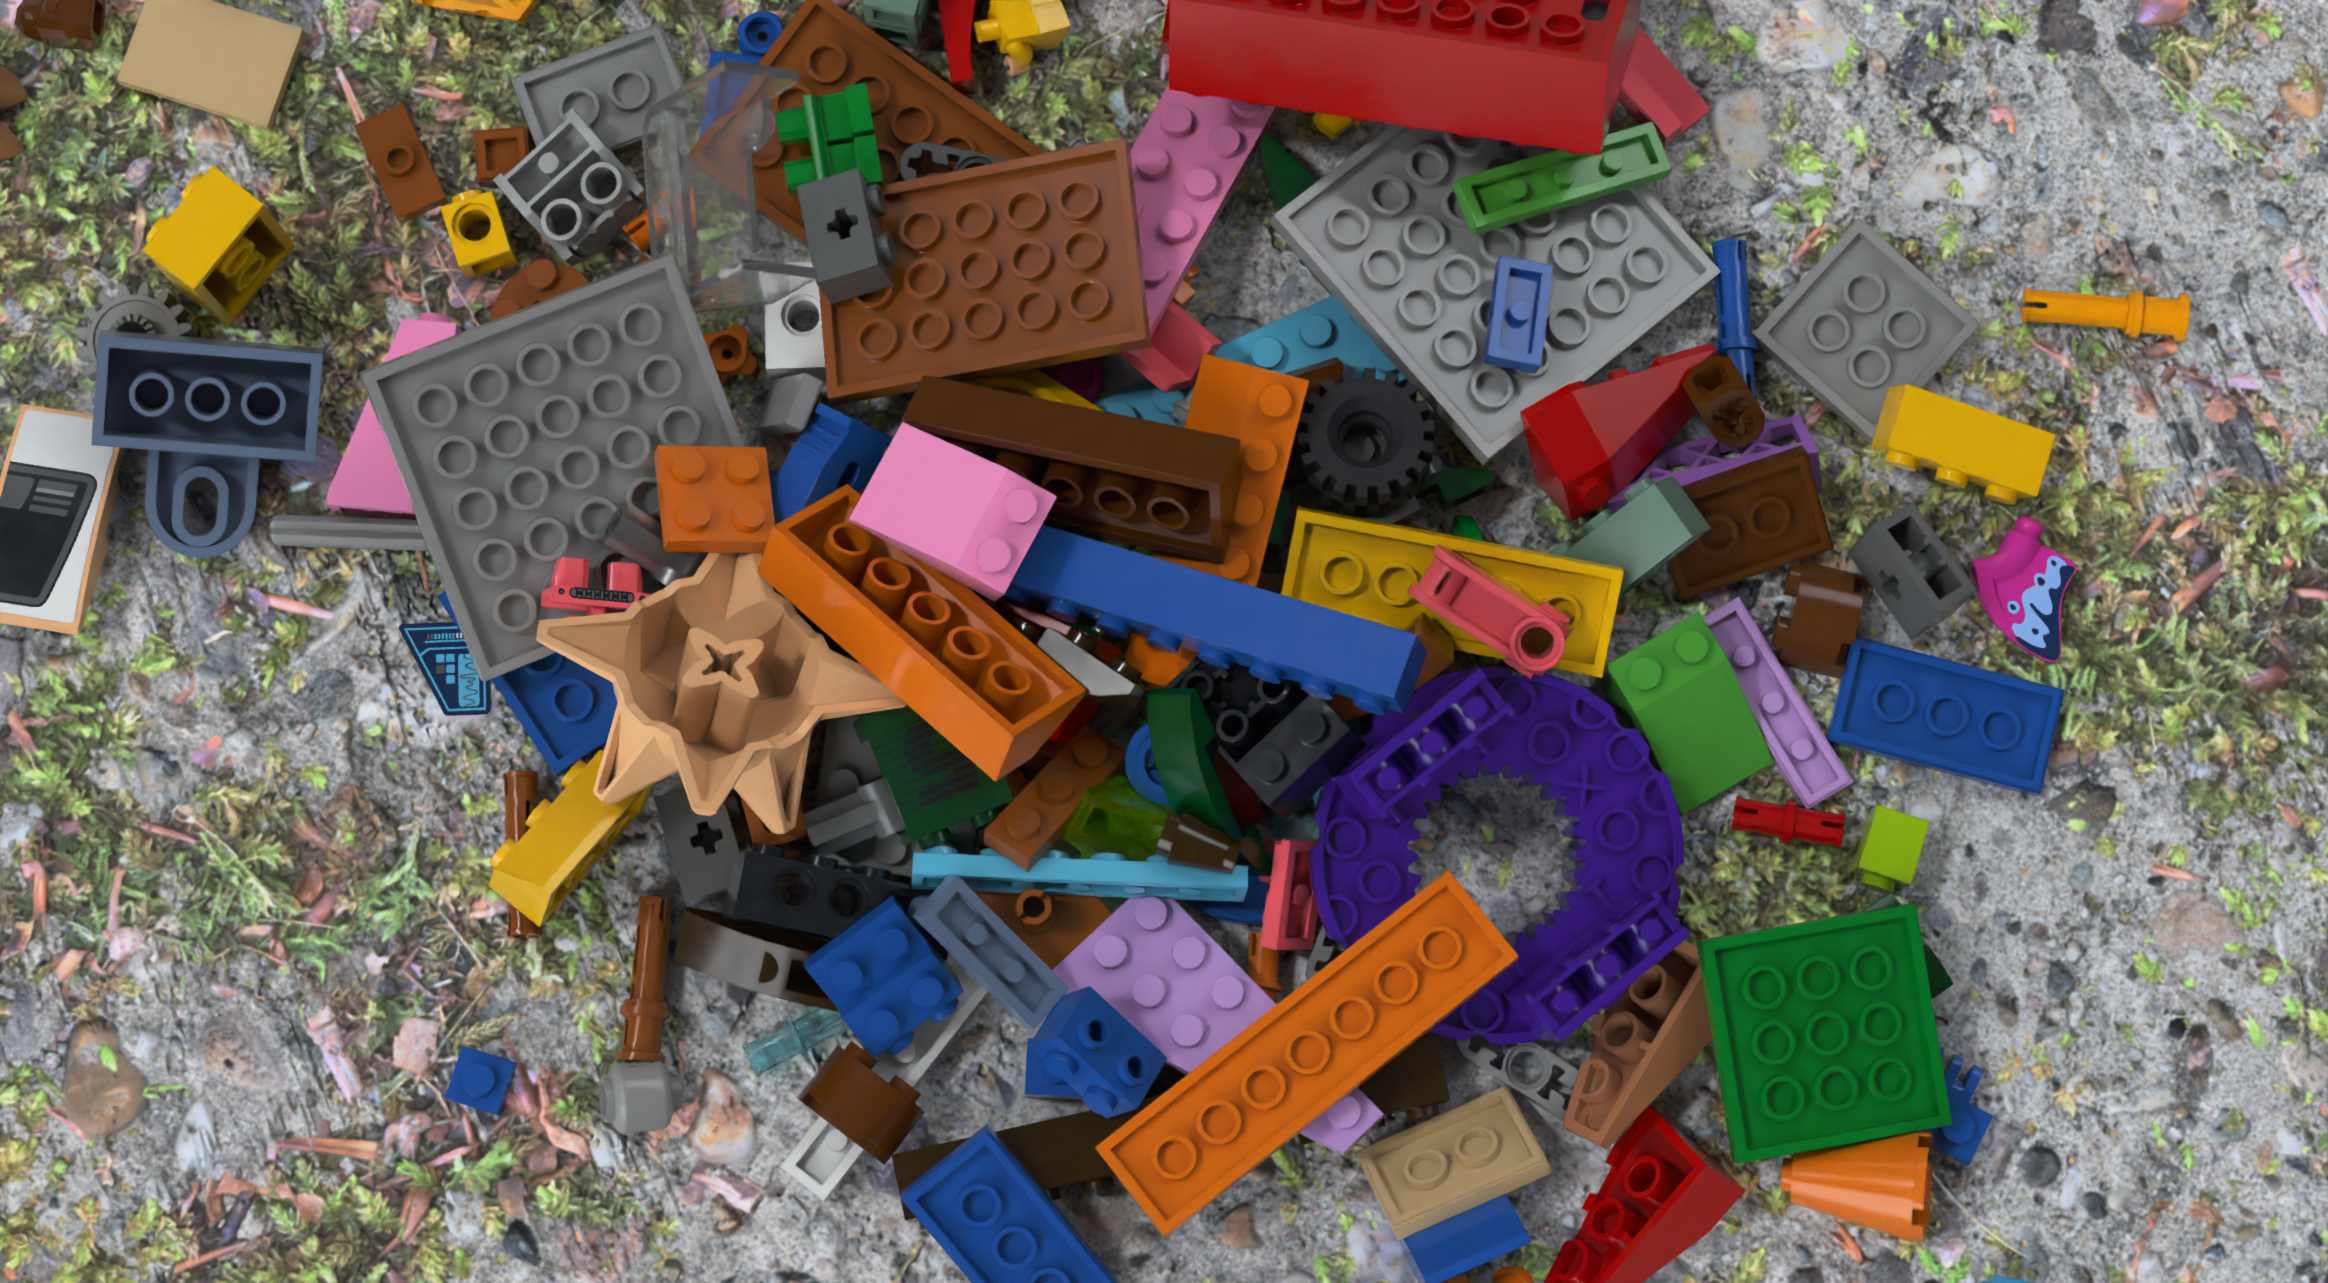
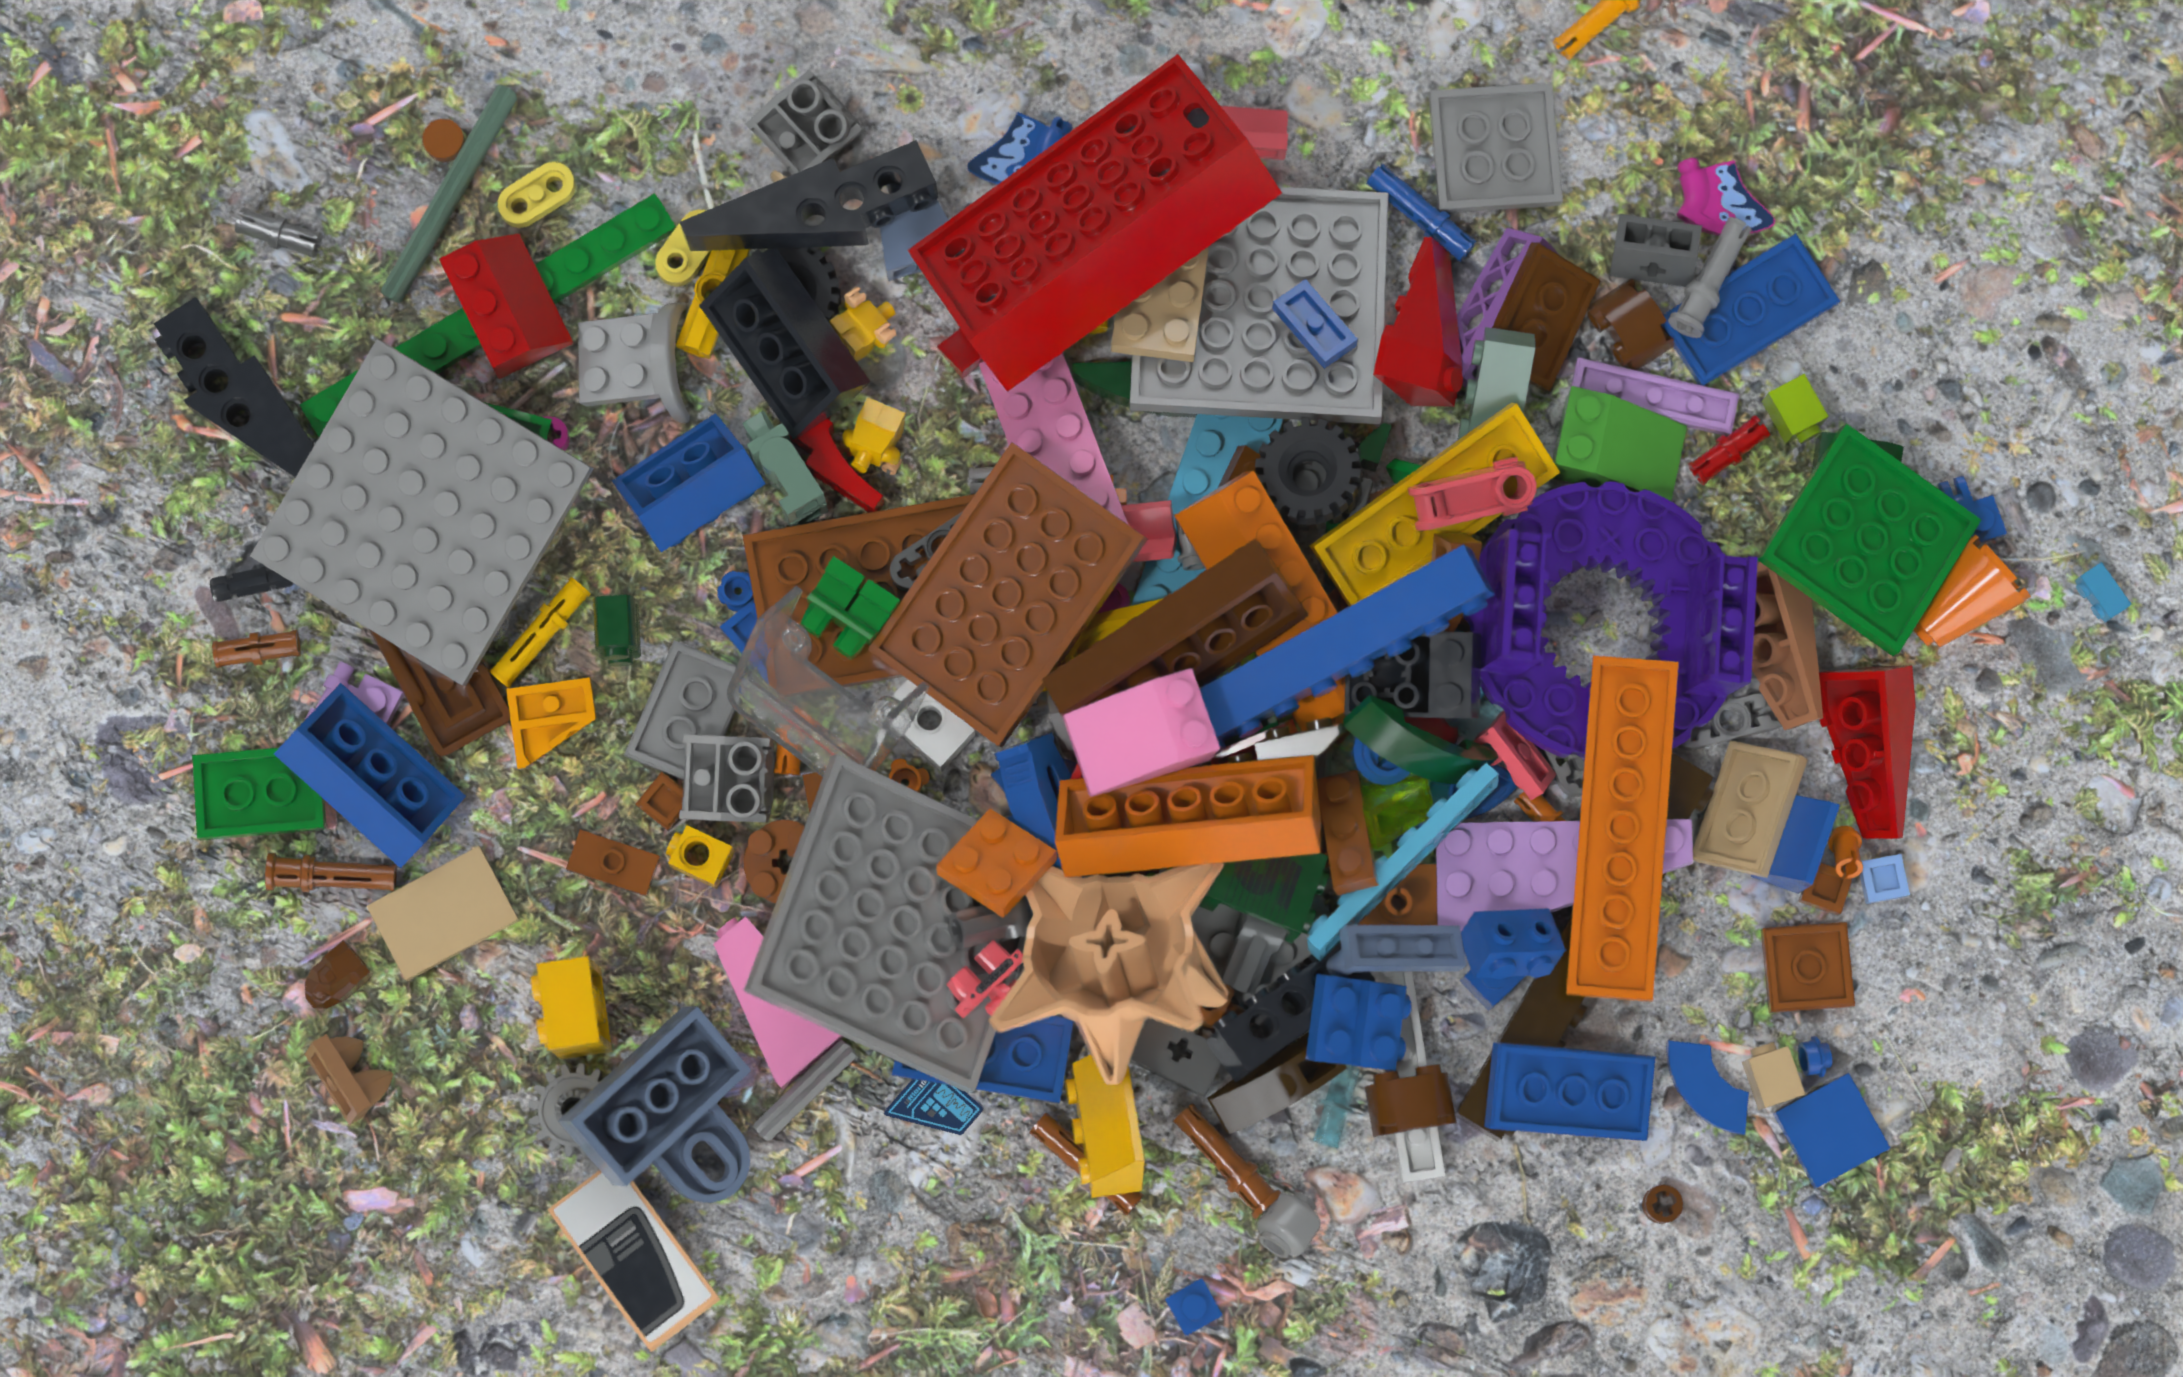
camera: 50 degrees left, 0 degrees up
(789, 404) = (973, 773): light grey tile -> none
(847, 235) = (892, 640): dark grey brick -> none
(1197, 845) = (1450, 778): dark brown cone -> none
(1393, 169) = (1164, 317): none -> tan plate
(1561, 179) = (1254, 237): bright green plate -> none
(1725, 402) = (1467, 259): reddish brown rock -> none
(1914, 654) = (1703, 293): none -> light grey pin
(1962, 444) = (1611, 156): yellow brick -> none

